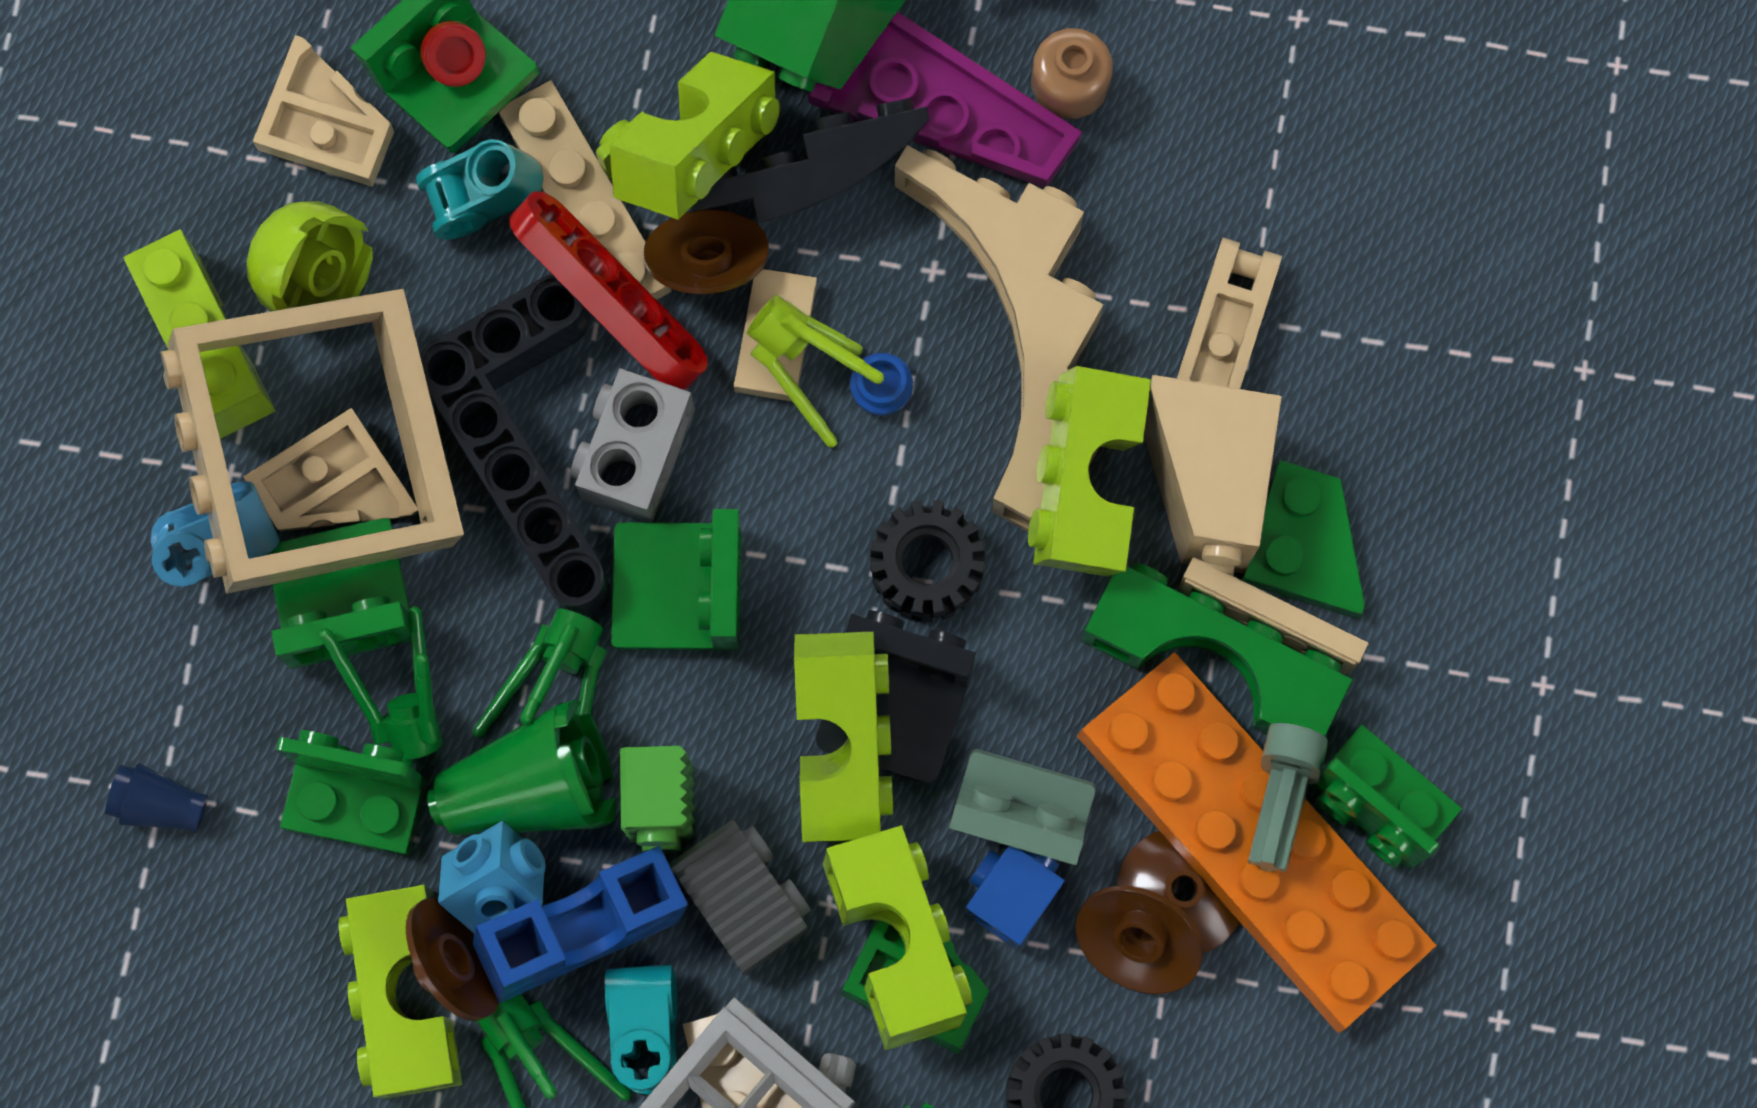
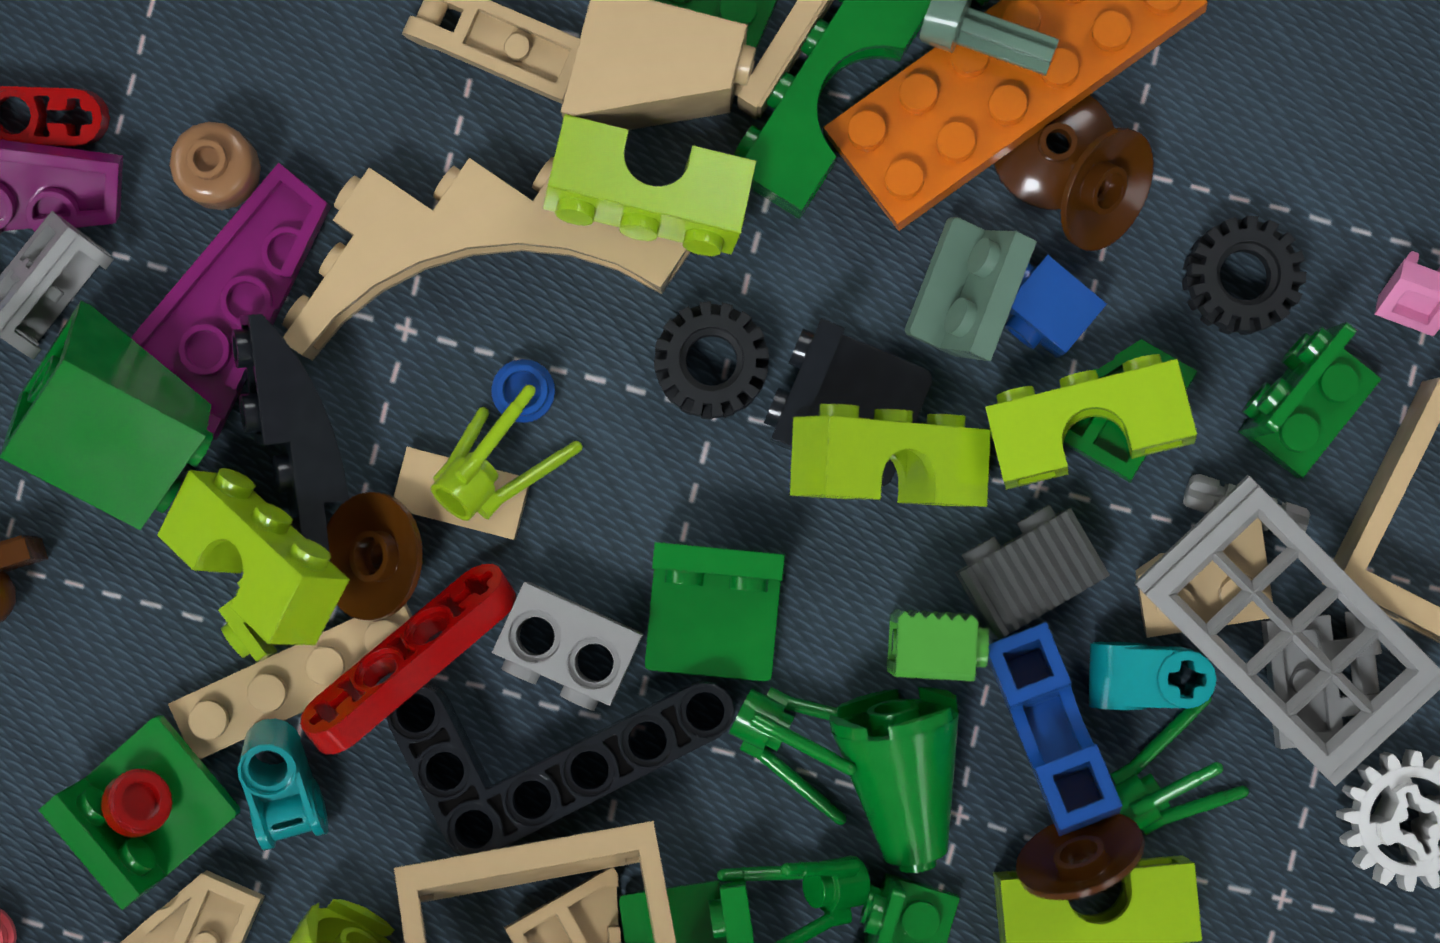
camera: 85 degrees left, 10 degrees up
(490, 875) = (999, 813): dark azure brick -> none

